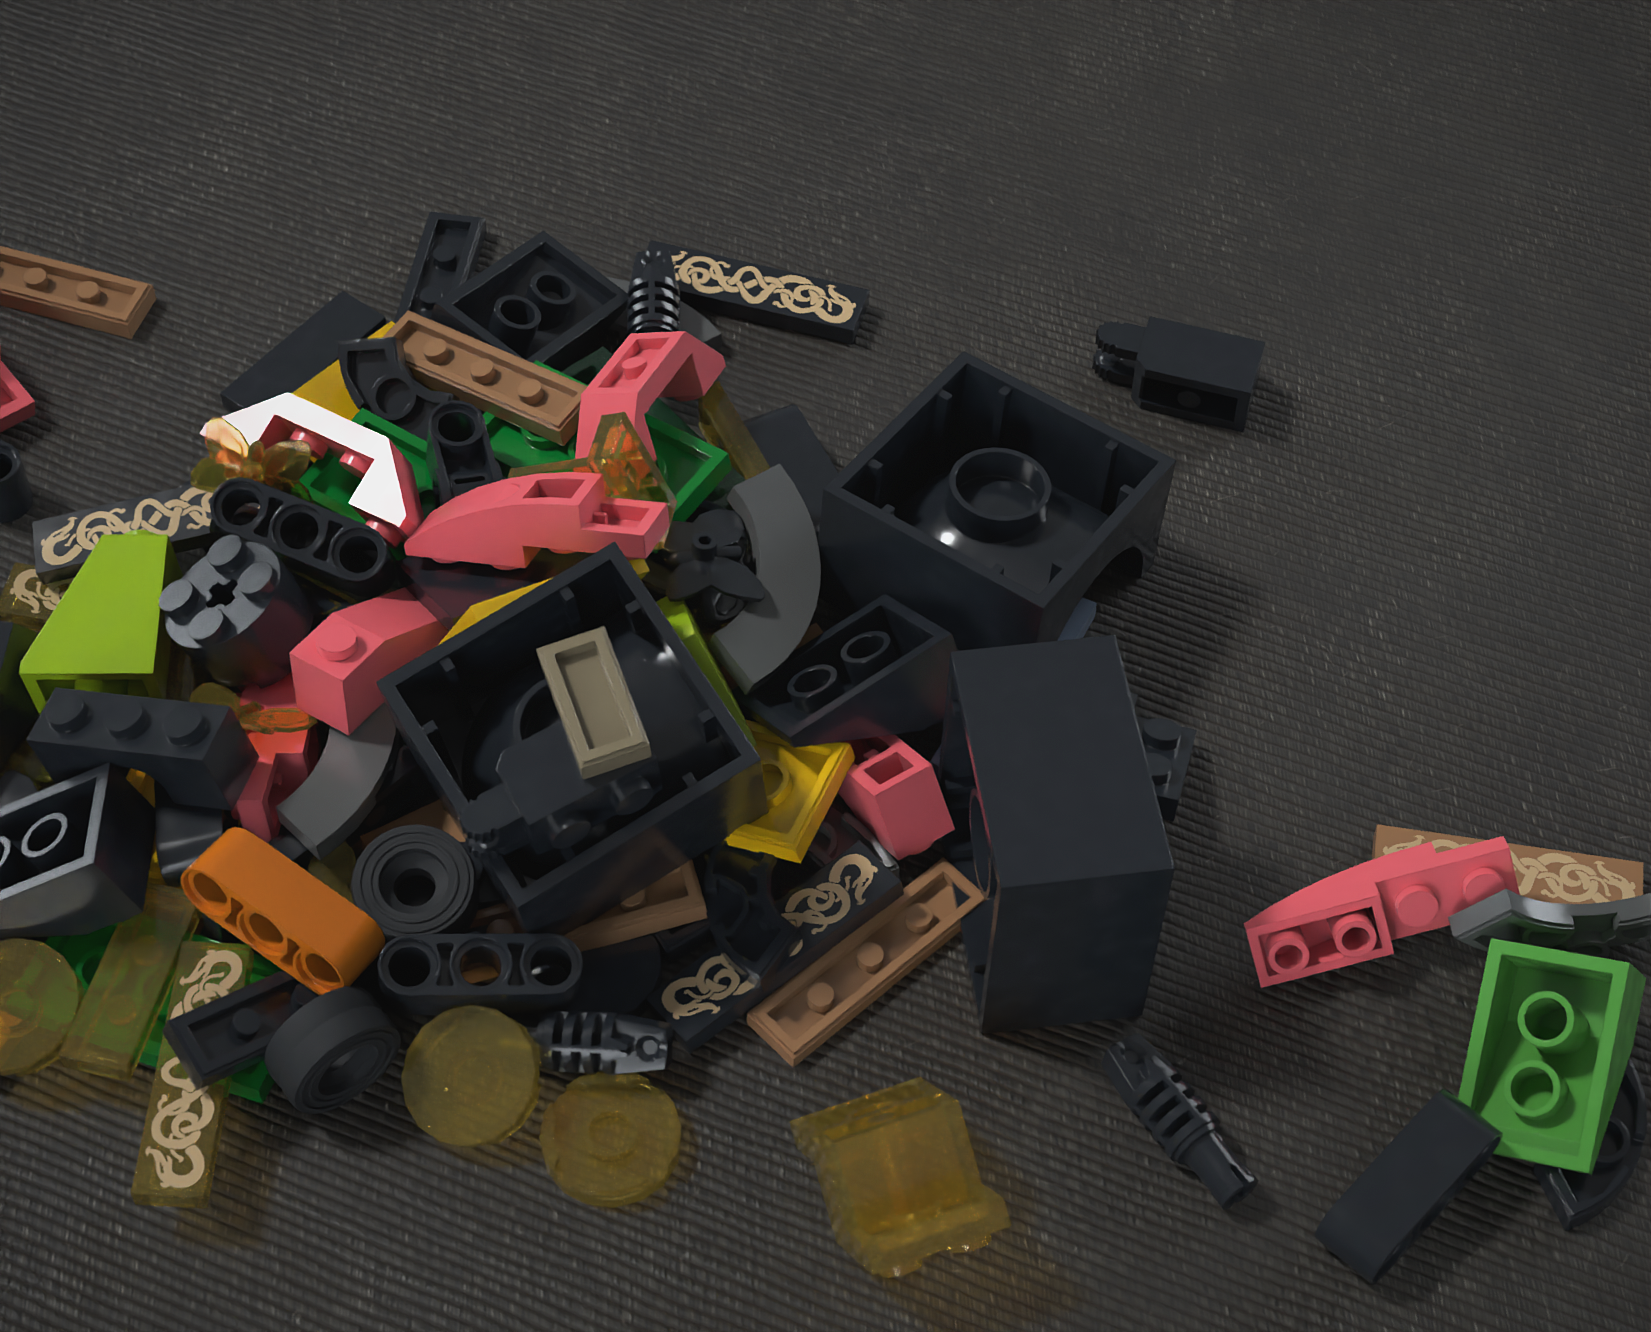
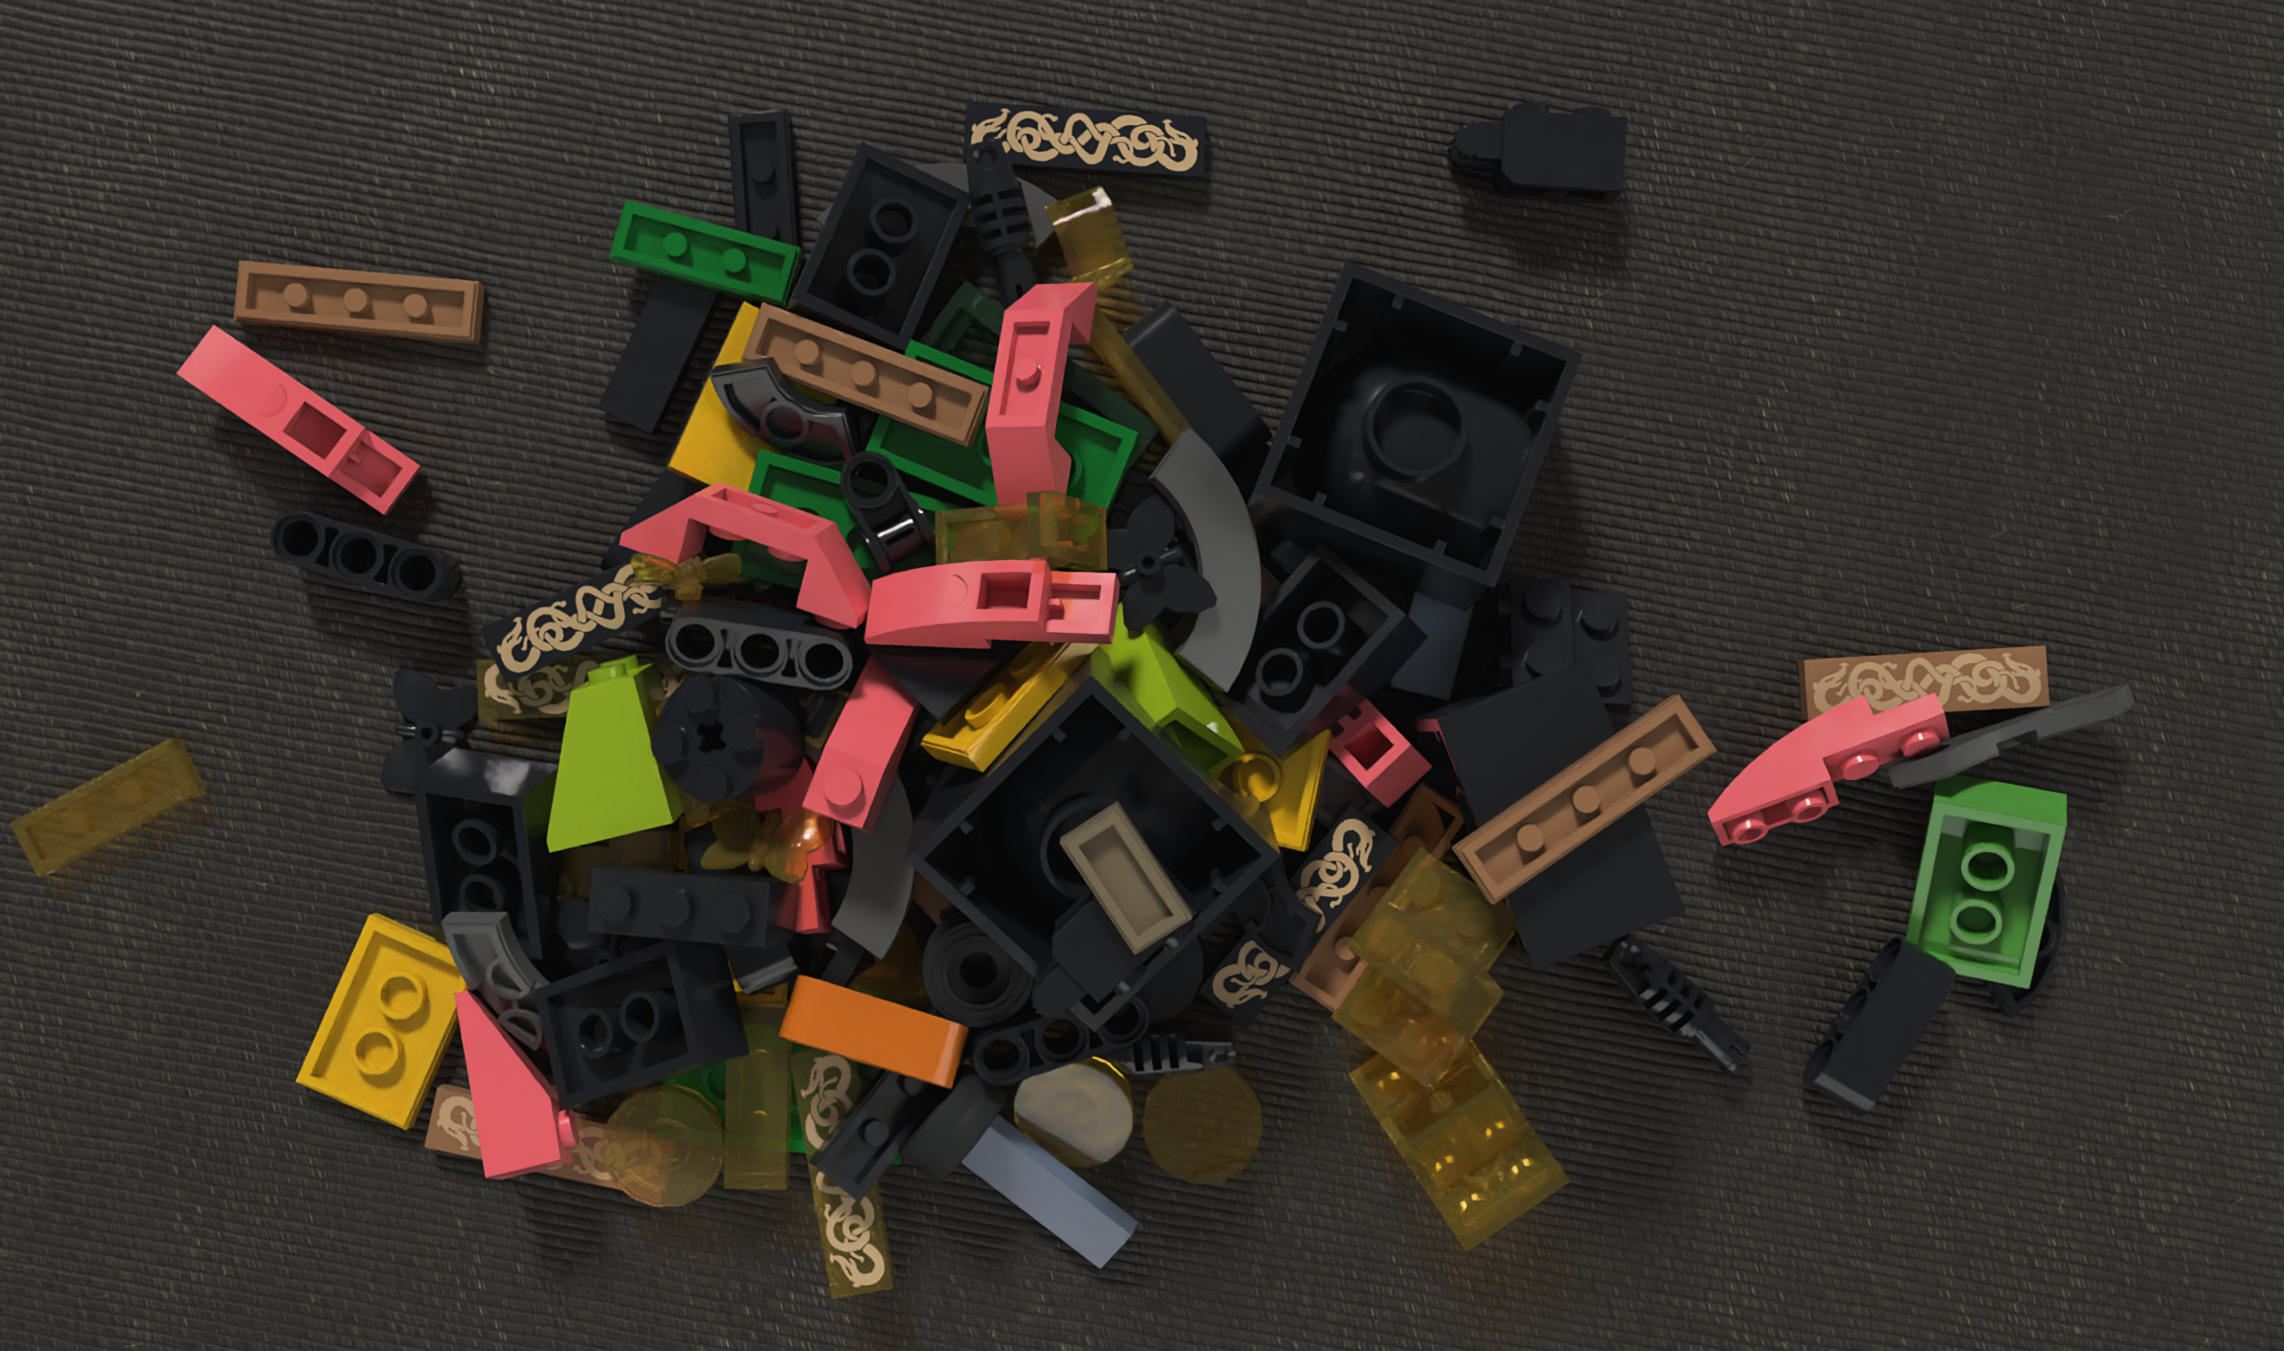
camera: 10 degrees left, 35 degrees up
(354, 288) = (706, 254): none -> green tile
(414, 1160) = (1050, 1192): none -> sand blue tile
(737, 335) = (1090, 238): none -> clear yellow brick
(896, 995) = (1426, 969): none -> clear yellow bracket
(1083, 741) = (1584, 799): none -> medium nougat tile

